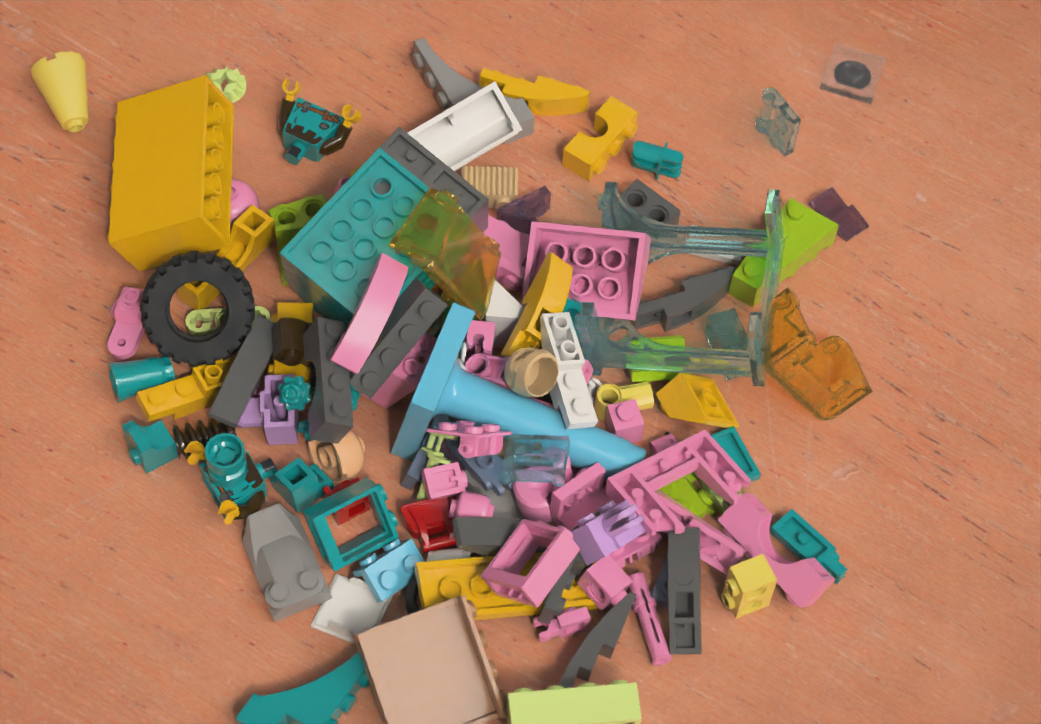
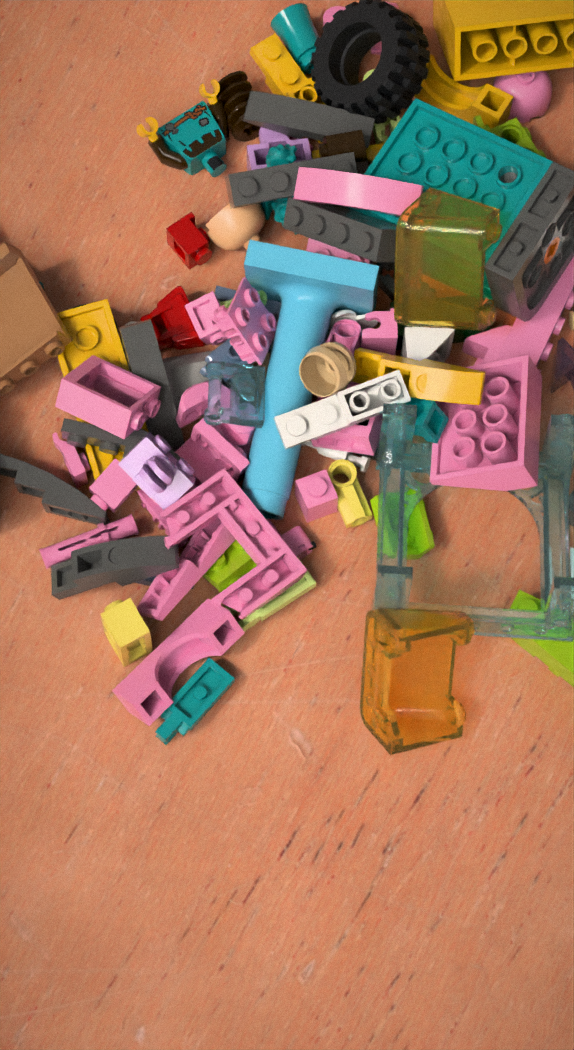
camera: 85 degrees right, 10 degrees up
(149, 445) = (224, 54): teal brick -> none
(226, 460) = (199, 113): teal wheel -> none
(284, 562) = (113, 197): light grey slope -> none
(300, 484) = (199, 193): teal brick -> none
(341, 556) = (130, 224): teal window -> none
(350, 609) = (74, 266): white piece -> none
(390, 569) = (110, 281): medium azure bracket -> none
(471, 505) = (178, 348): bright pink head -> none
(694, 299) = (491, 560): dark grey slope -> none
(695, 400) = (348, 571): yellow slope -> none
(725, 331) = (446, 589): clear light blue brick -> none
(735, 448) = (298, 618): teal tile -> none

